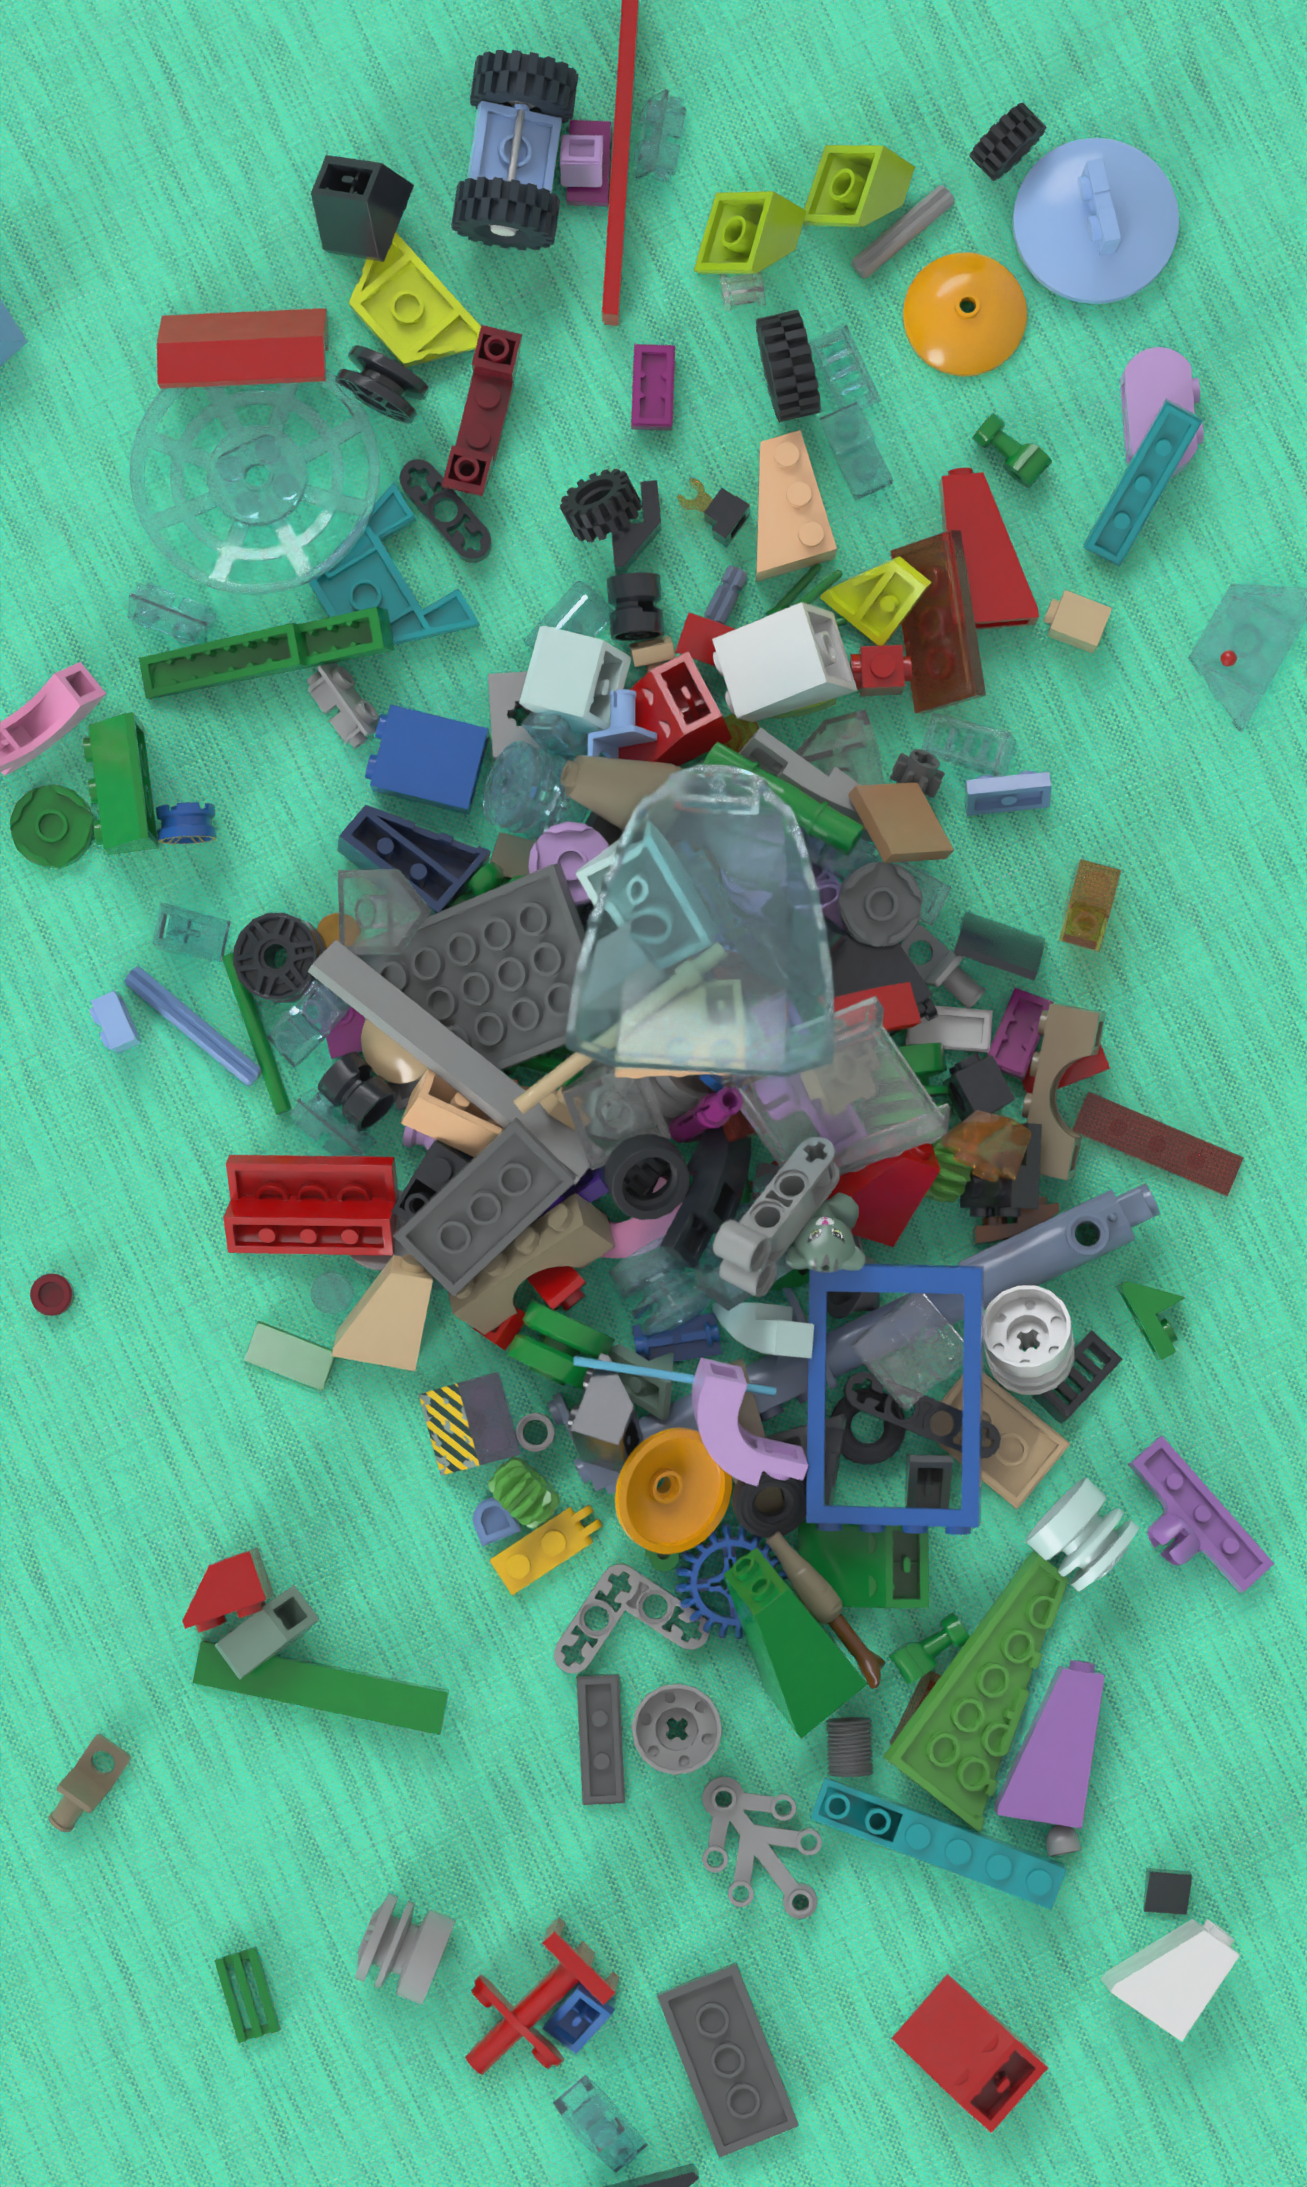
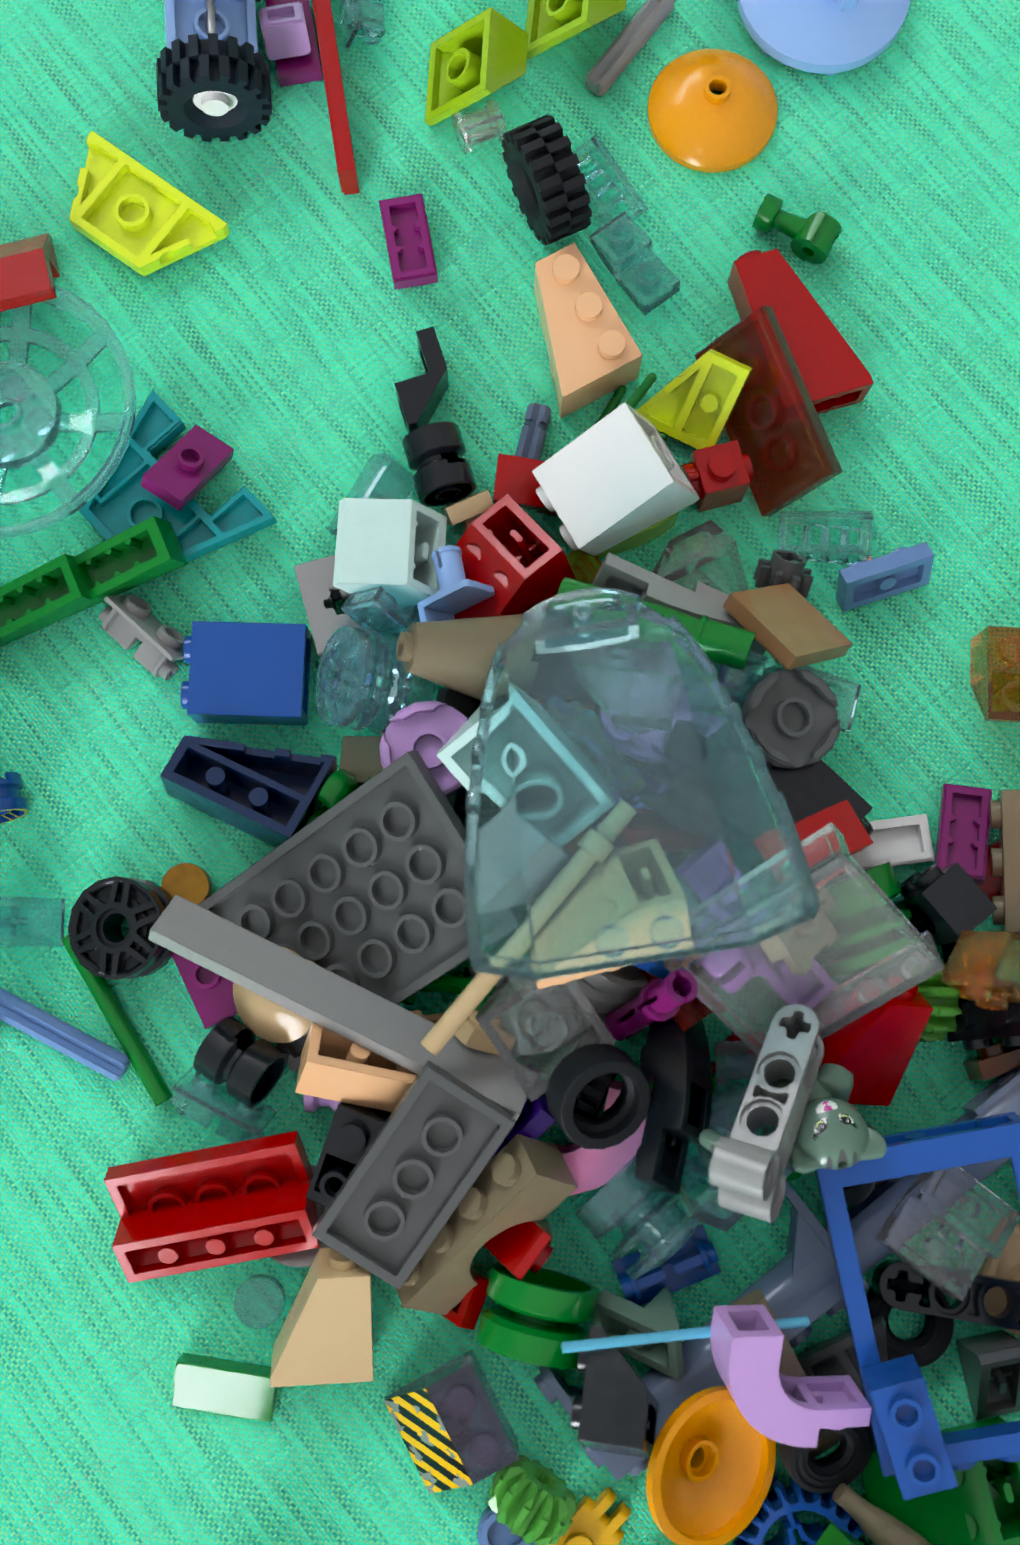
camera: 15 degrees left, 5 degrees down
(308, 1023) = (169, 997): clear light blue slope -> none
(358, 206) = (58, 113): black slope -> none
(378, 911) = (222, 851): clear slope -> none
(382, 384) = (118, 286): black wheel -> none
(411, 561) = (187, 467): none -> magenta plate
(473, 527) = (208, 393): black beam -> none
(484, 412) = (234, 344): dark red slope -> none
(520, 1432) = (533, 1437): light grey beam -> none
(600, 505) = (379, 365): black tyre -> none
(724, 512) = (510, 352): black piece -> none
(767, 1328) = (783, 1248): light aqua slope -> none
(830, 1479) = (909, 1427): none -> blue brick
(944, 968) = (868, 781): light grey bracket -> none
(999, 945) = (923, 740): black slope -> none
(1077, 621) = (911, 383): tan brick -> none
(1142, 482) = (946, 223): teal tile -> none
(1145, 385) = (939, 160): lavender brick -> none

